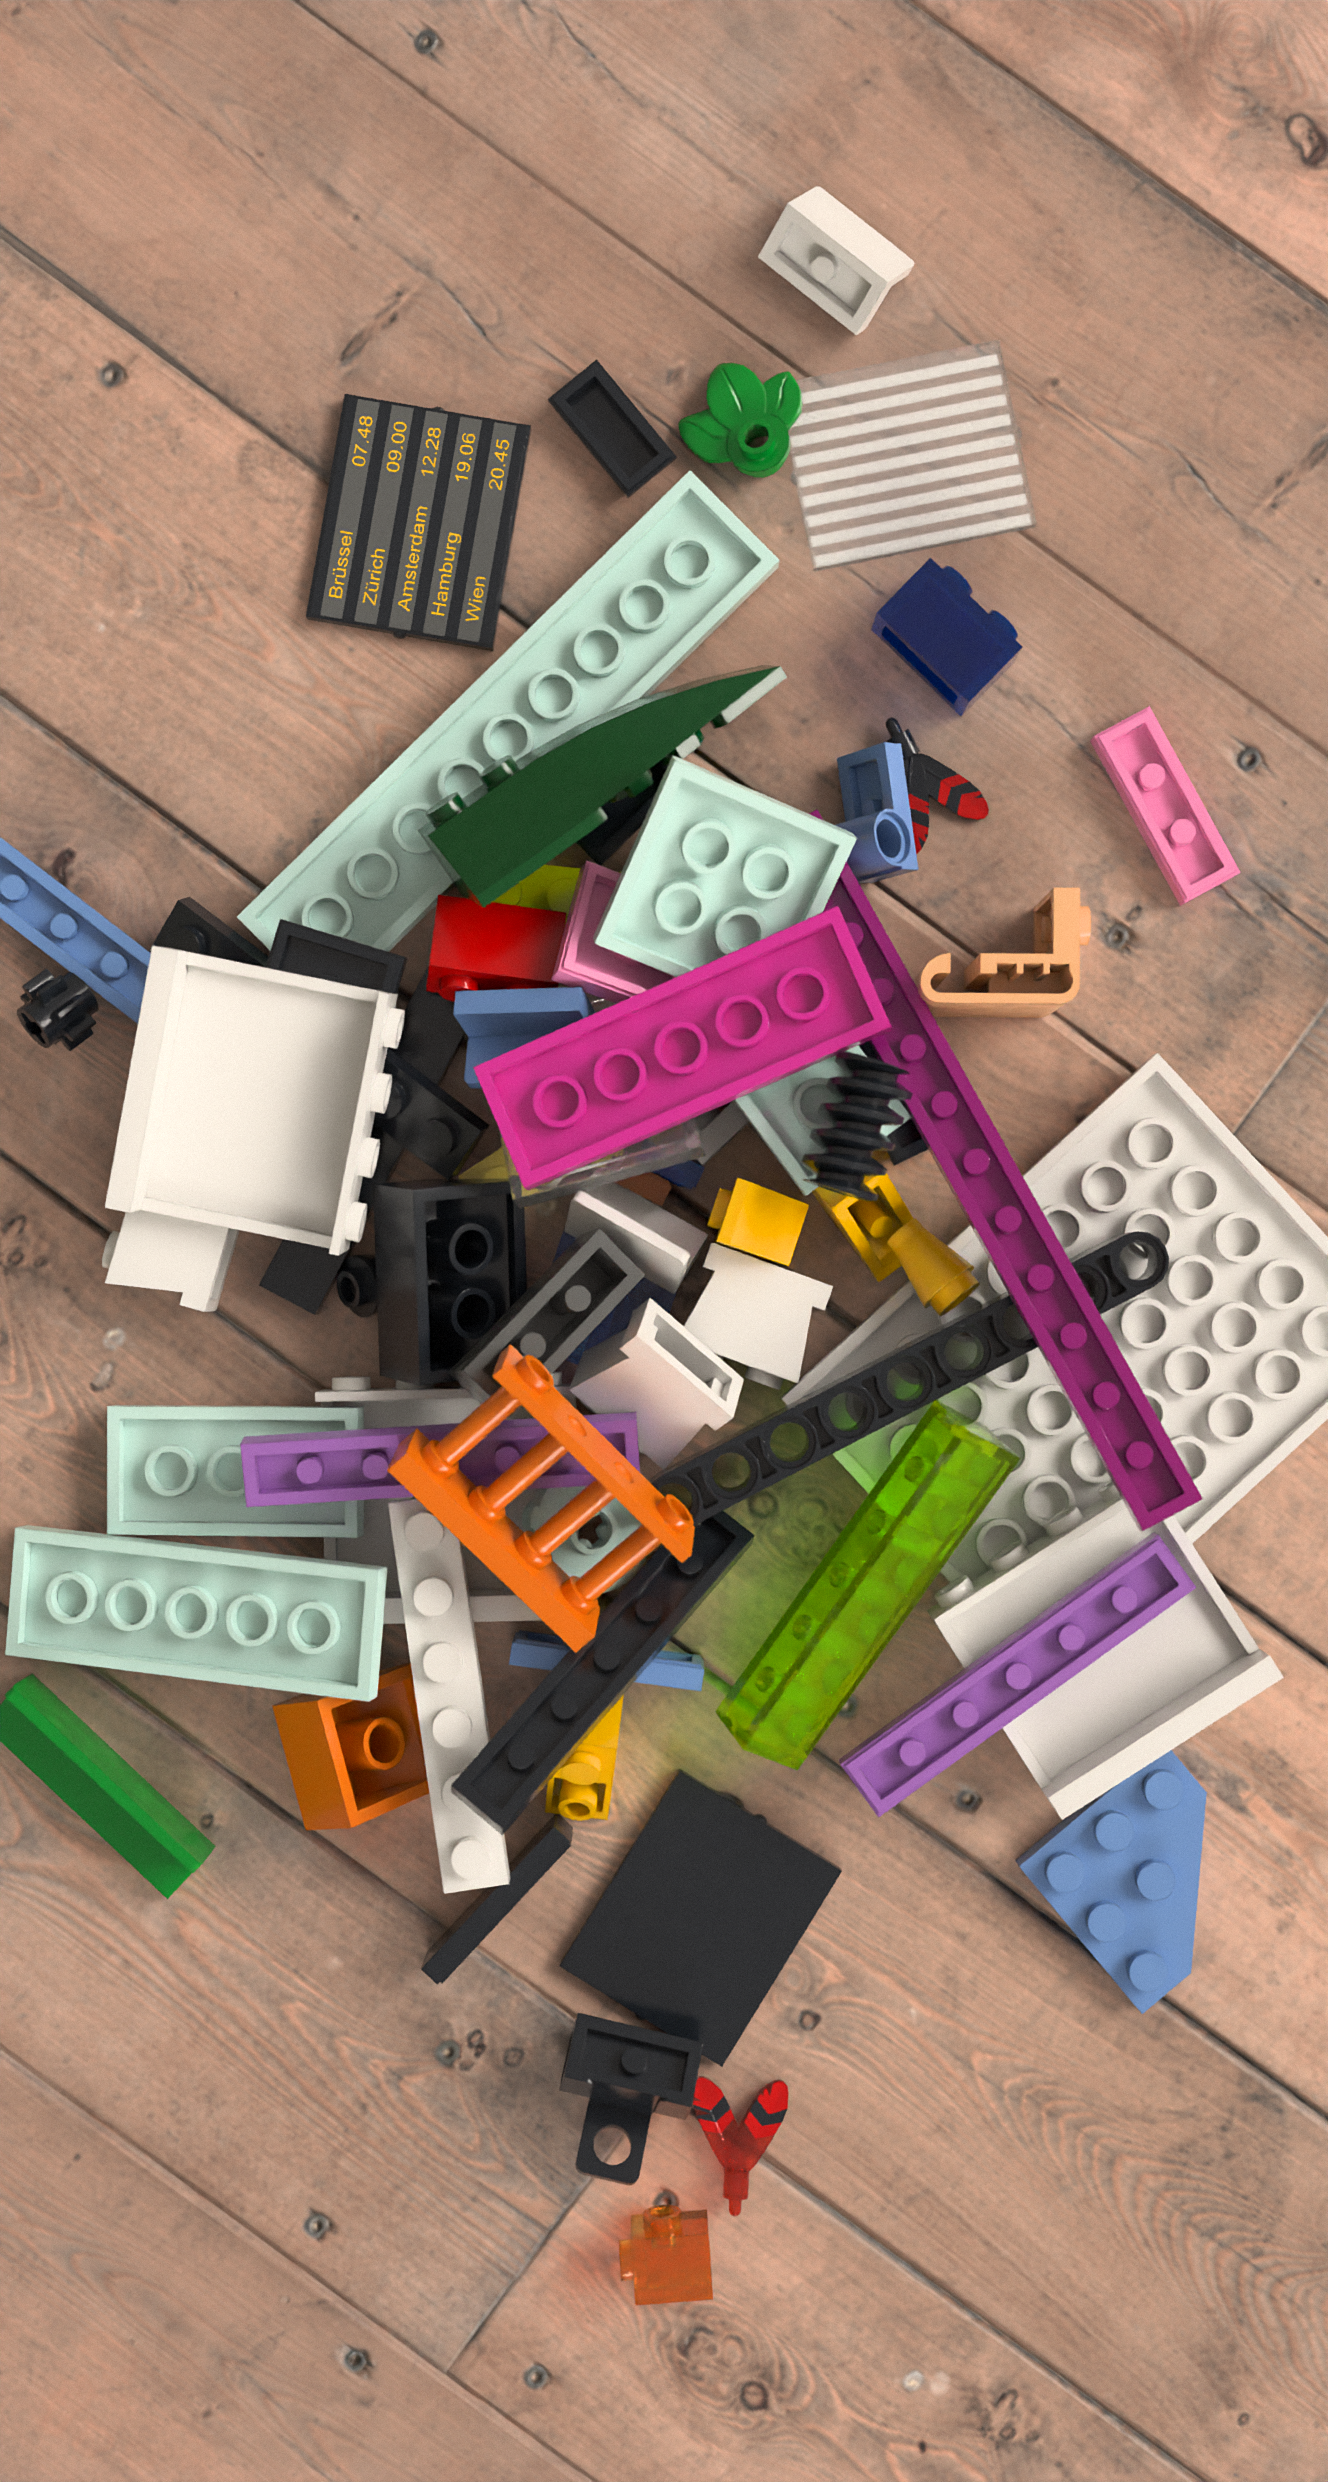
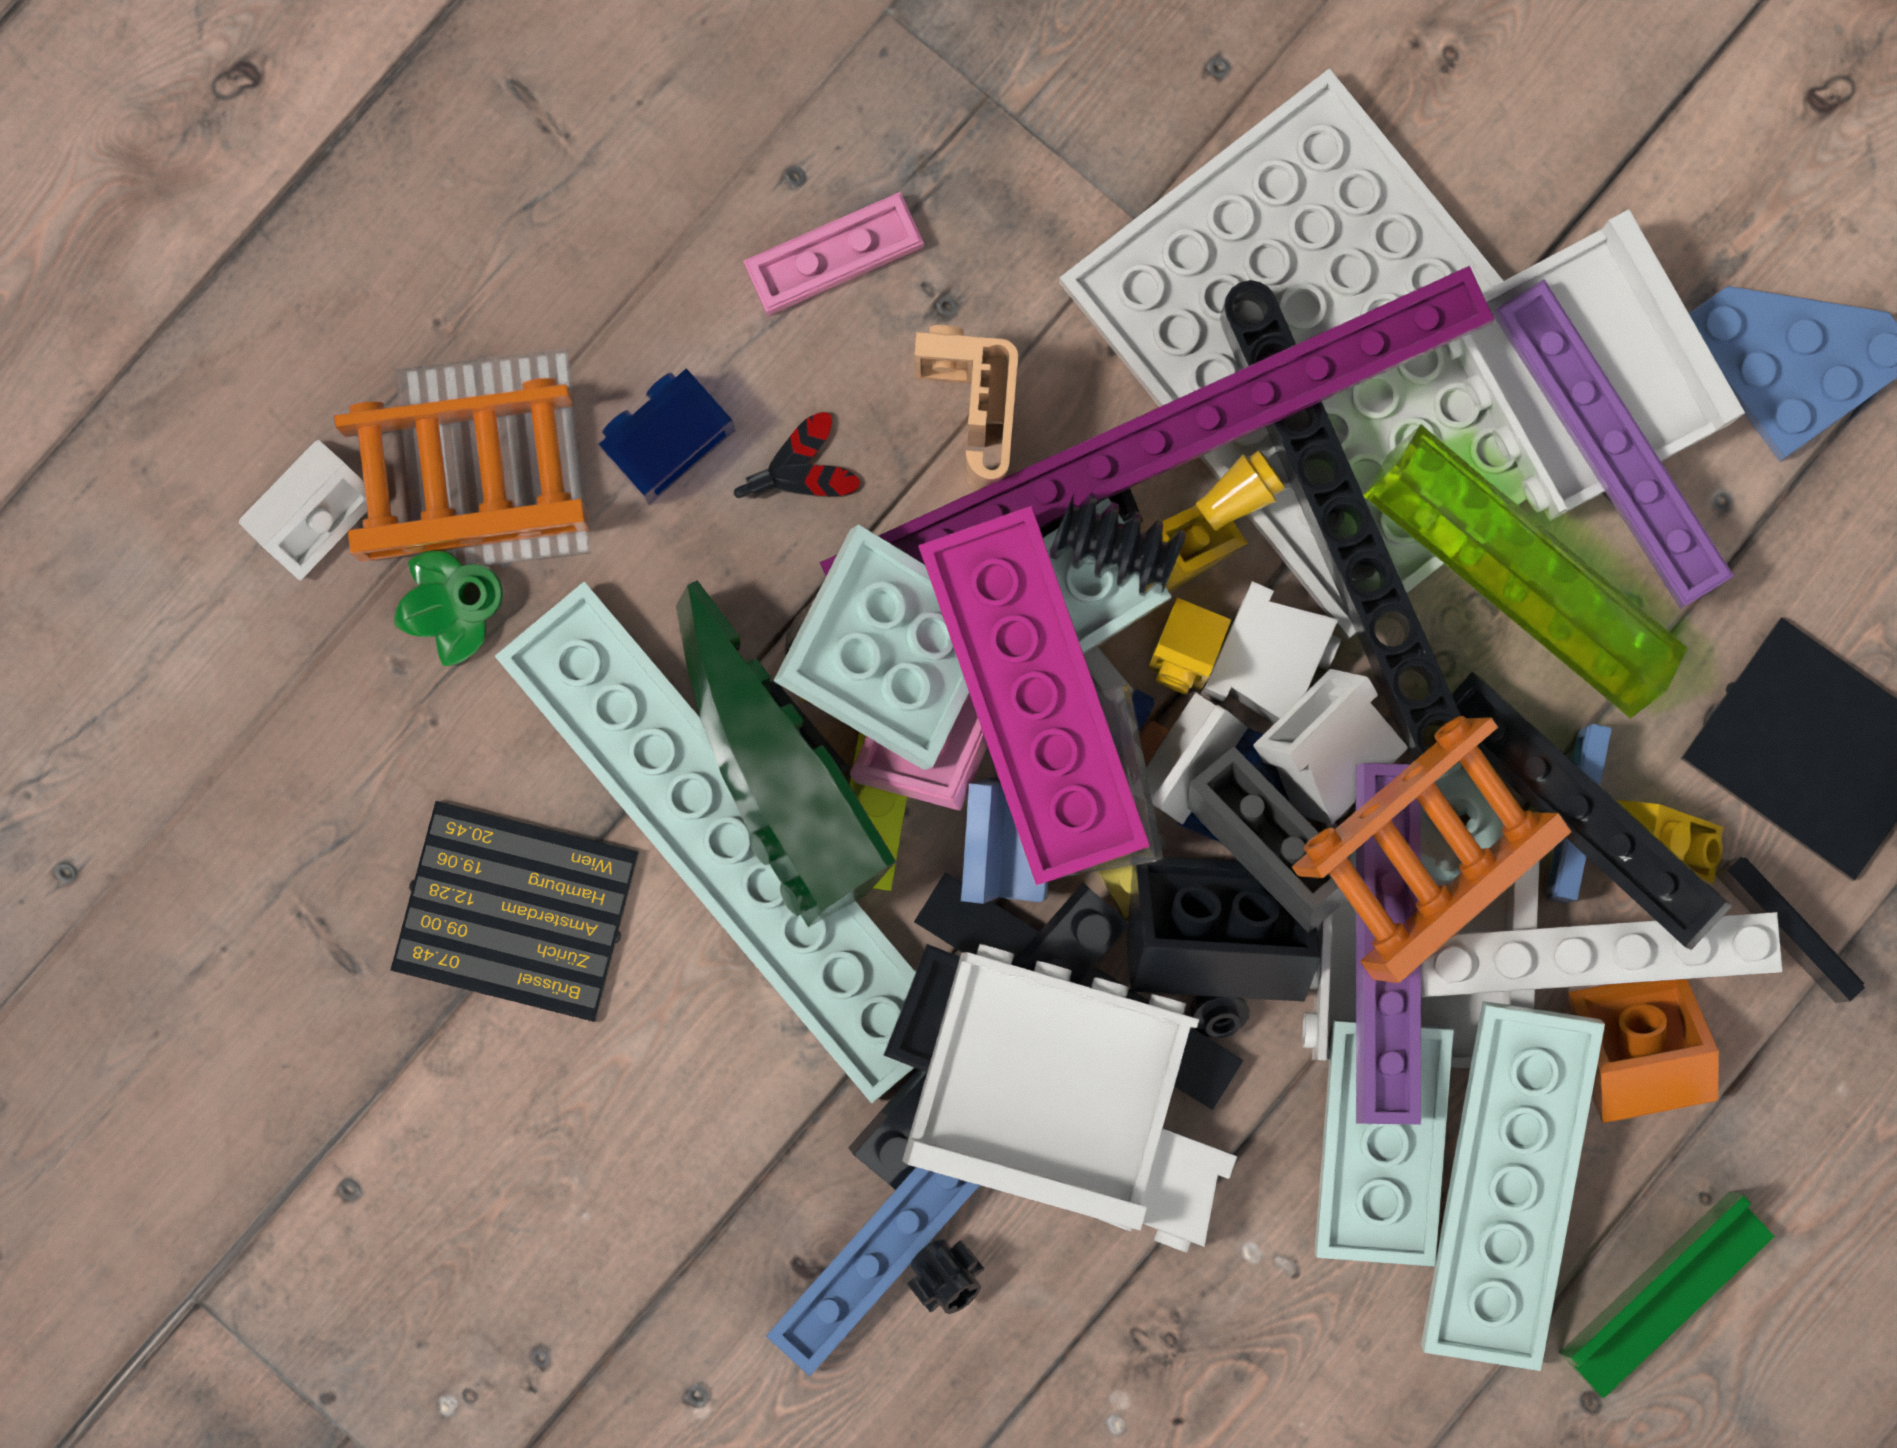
camera: 85 degrees left, 5 degrees down
(492, 947) = (928, 871): red brick -> none
(612, 428) = (446, 725): black tile -> none
(829, 395) = (497, 517): none -> orange fence
(877, 812) = (820, 510): medium blue plate -> none

